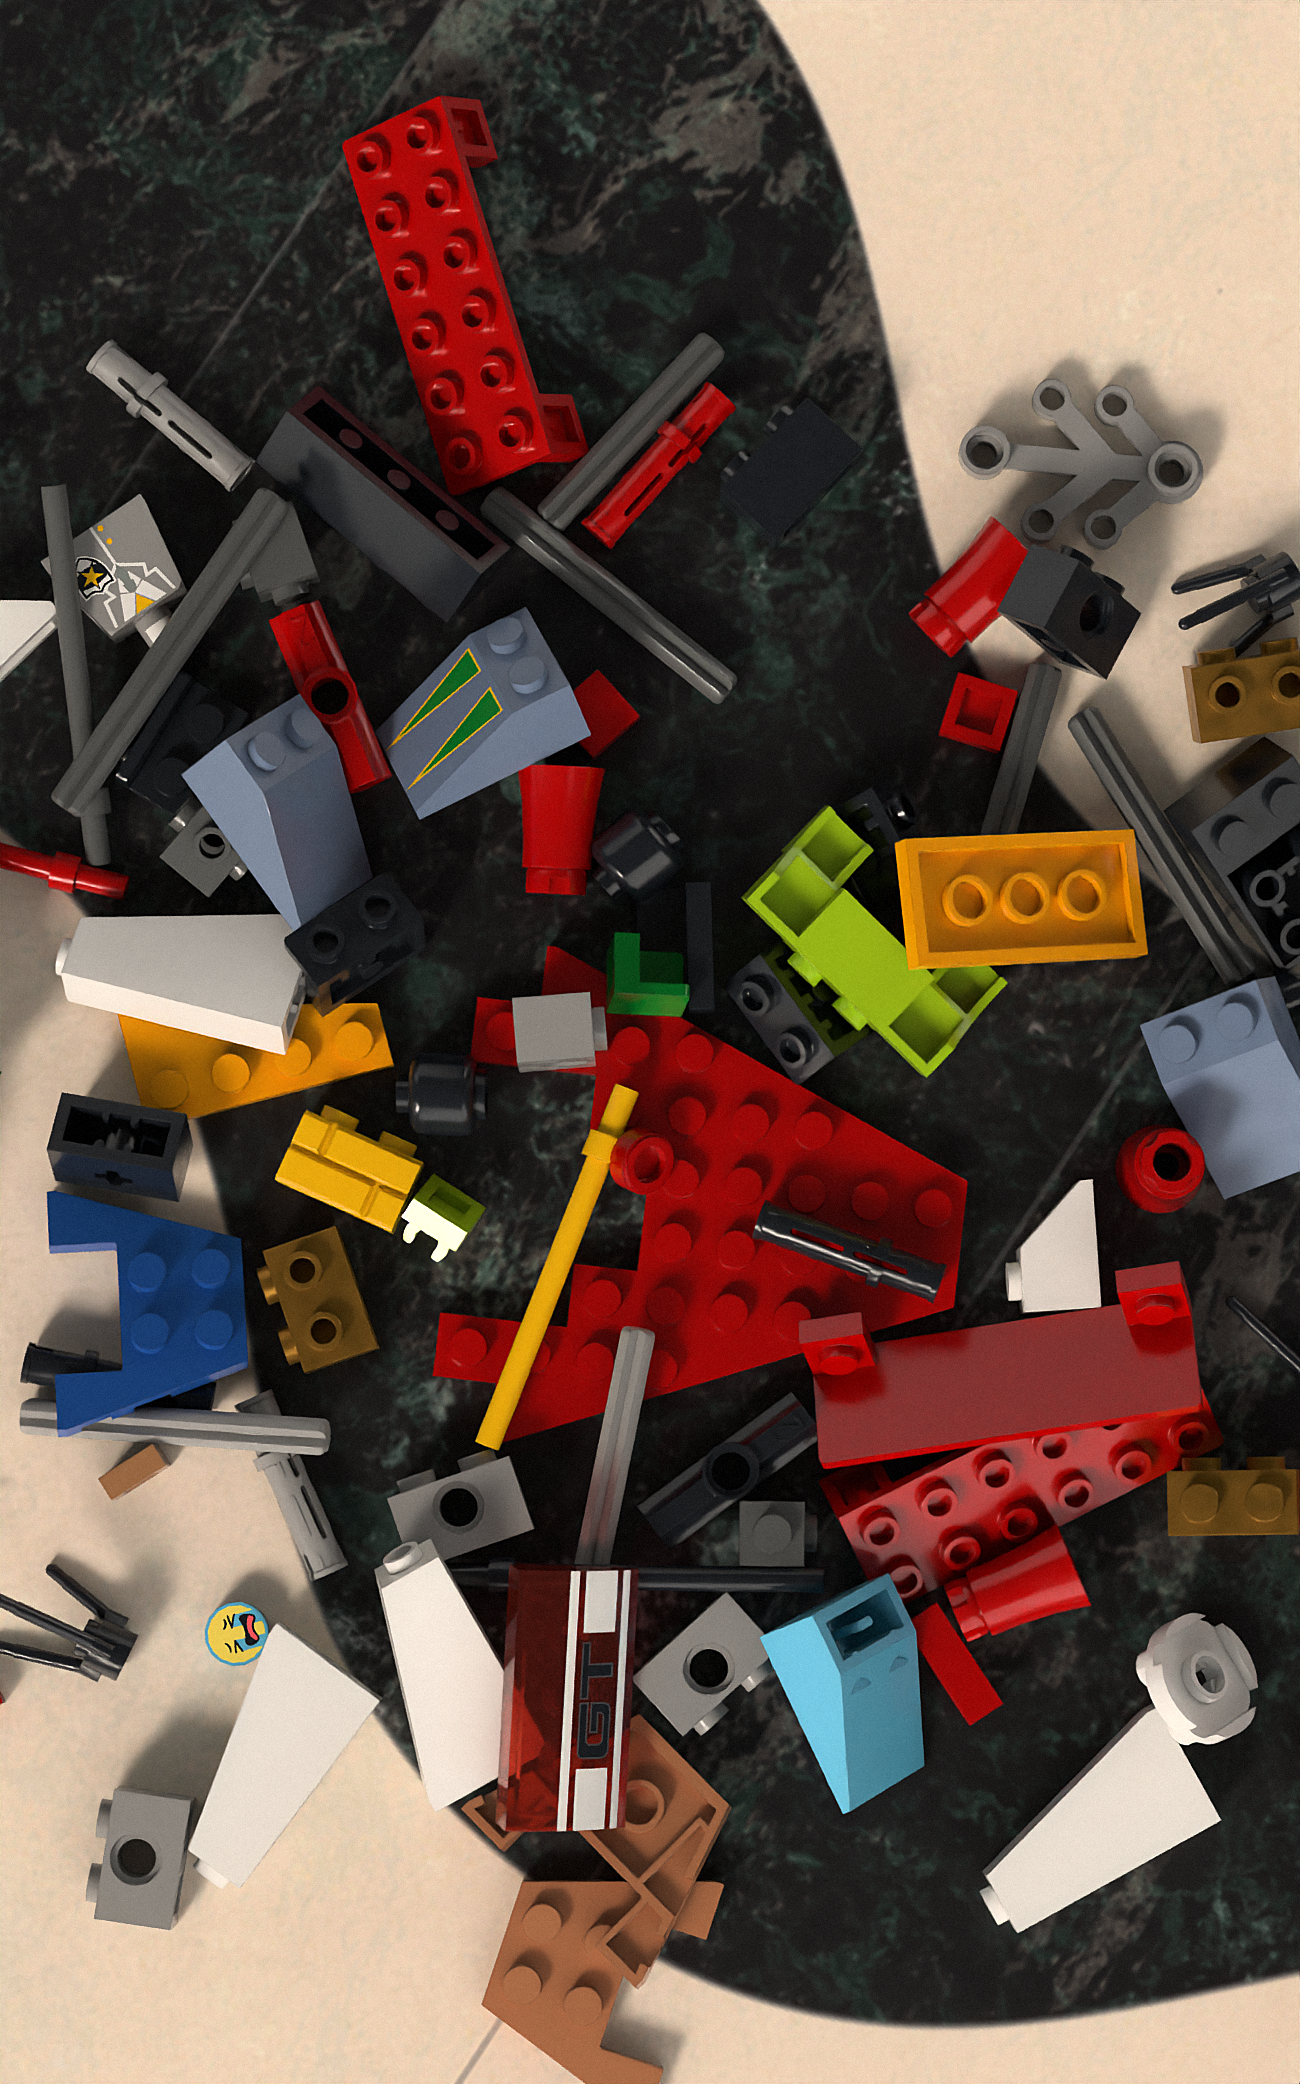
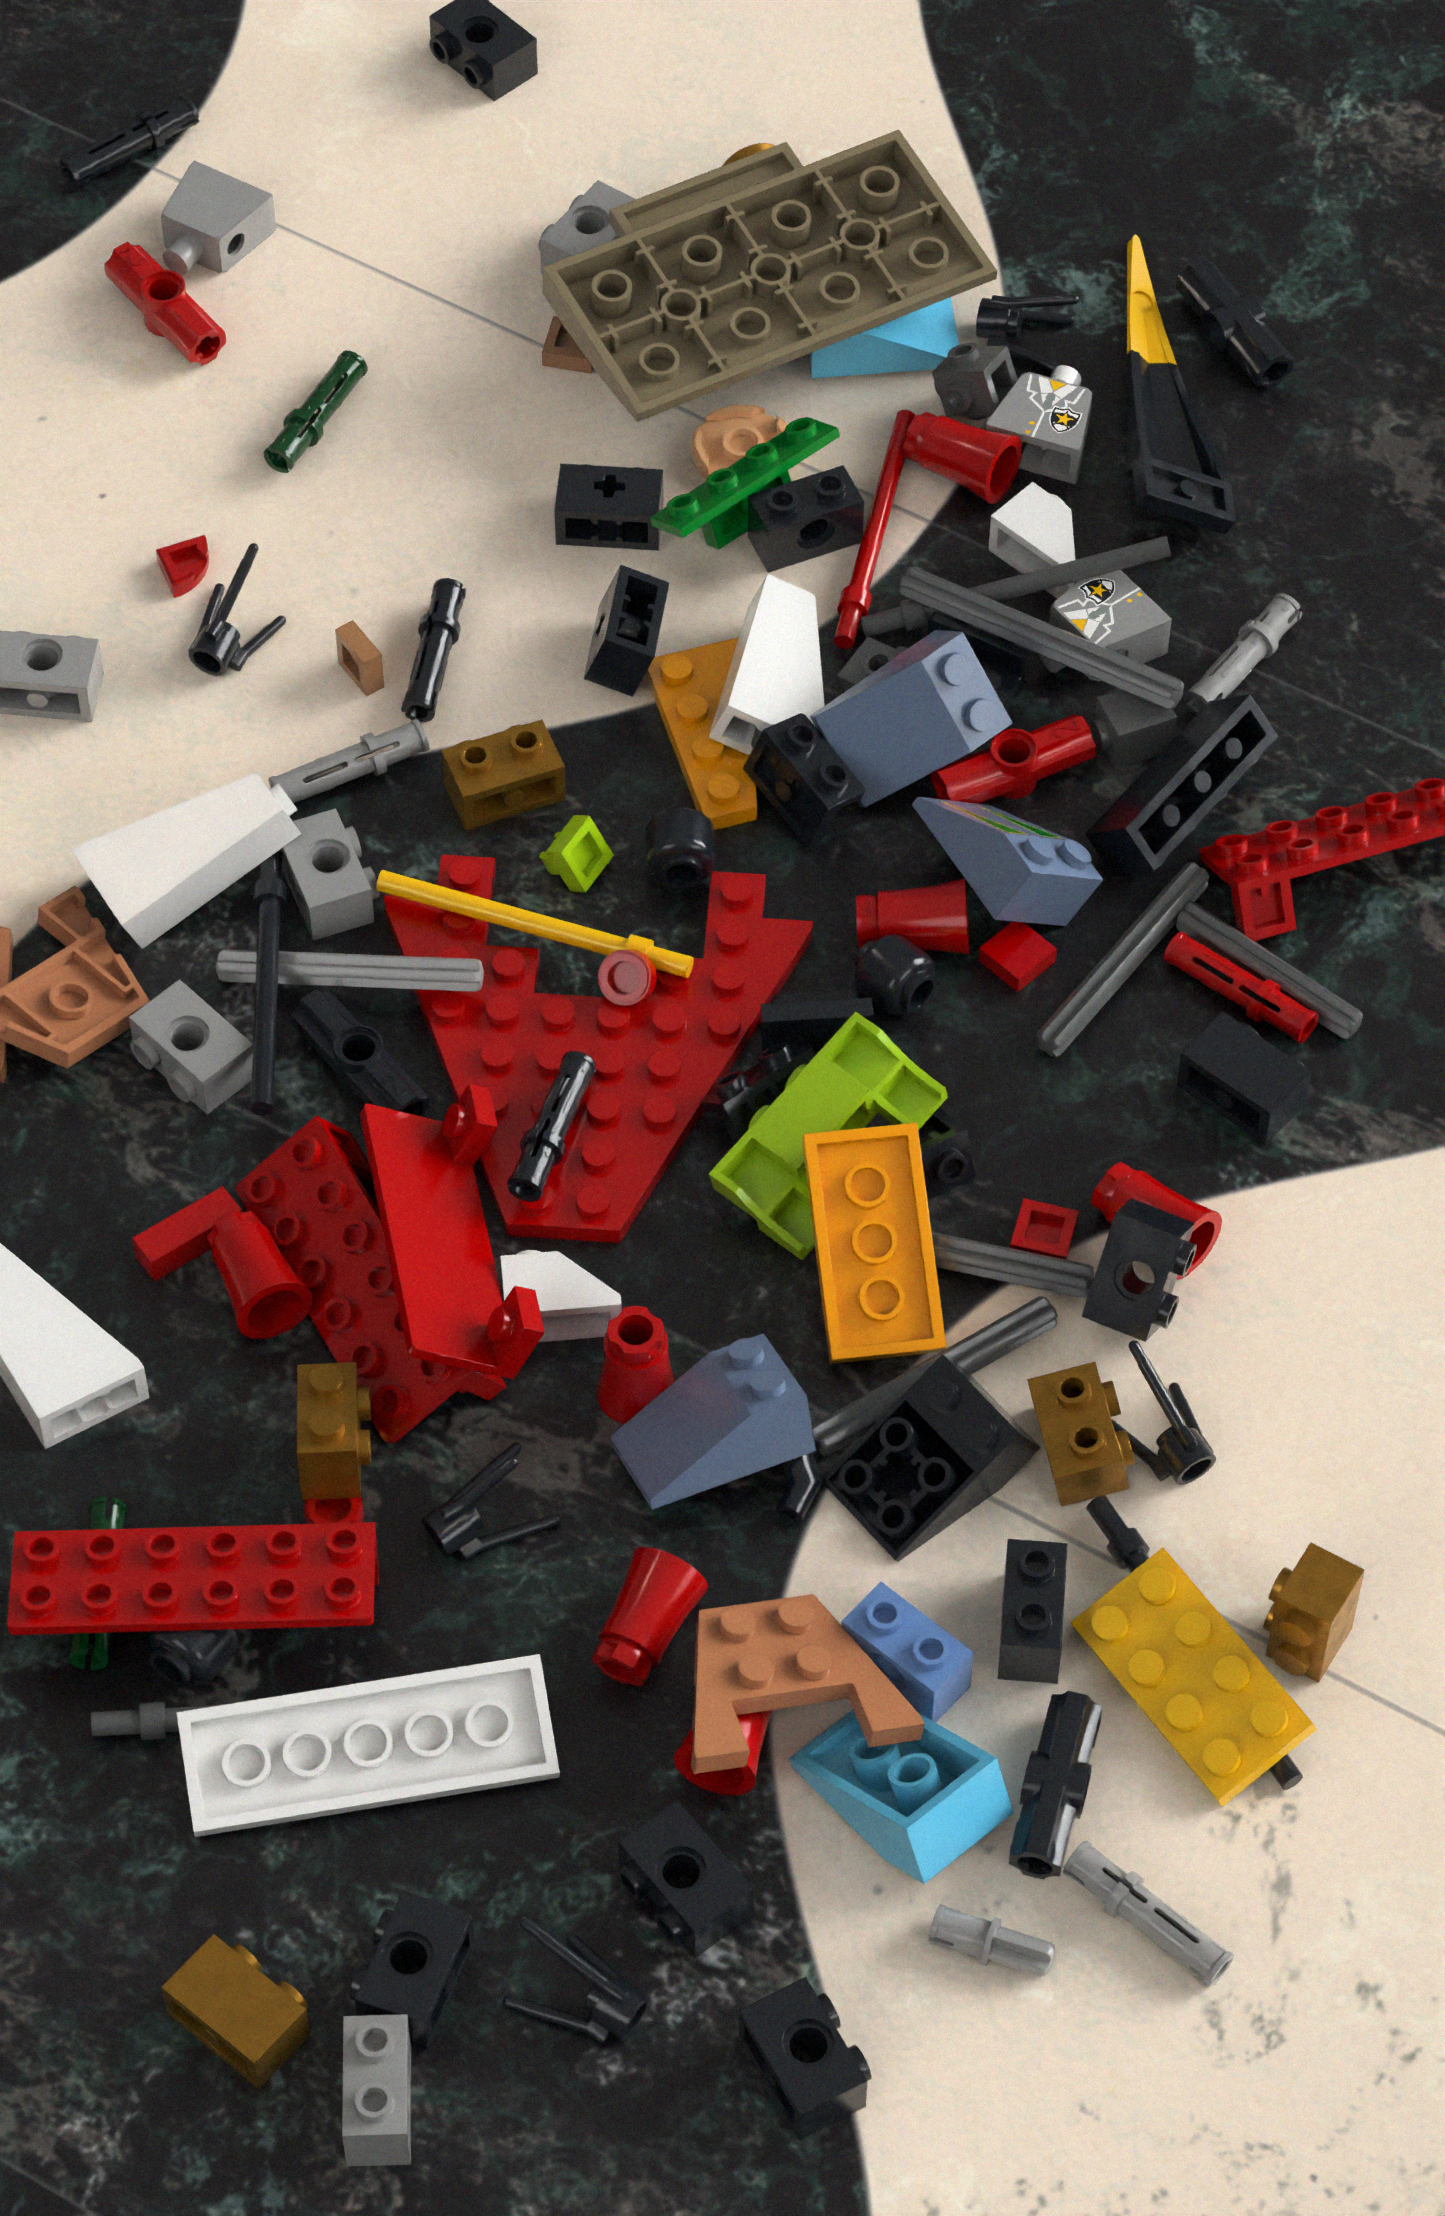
camera: 90 degrees right, 30 degrees down
(175, 1302) = (492, 678): blue wing -> none
(191, 1428) = (396, 677): light grey axle -> none
(236, 1633) = (226, 737): tile -> none
(282, 1745) = (121, 754): white slope -> none
(350, 1169) = (617, 786): yellow brick -> none
(558, 1031) = (733, 889): light grey brick -> none
(566, 1698) = (163, 919): clear red slope -> none
(643, 980) = (787, 969): green panel -> none
(775, 1533) = (303, 1085): dark grey brick -> none
(854, 1688) = (163, 1138): medium azure slope -> none
(1092, 464) = (1280, 1312): light grey plant -> none
(1169, 1672) = (198, 1419): white plate -> none

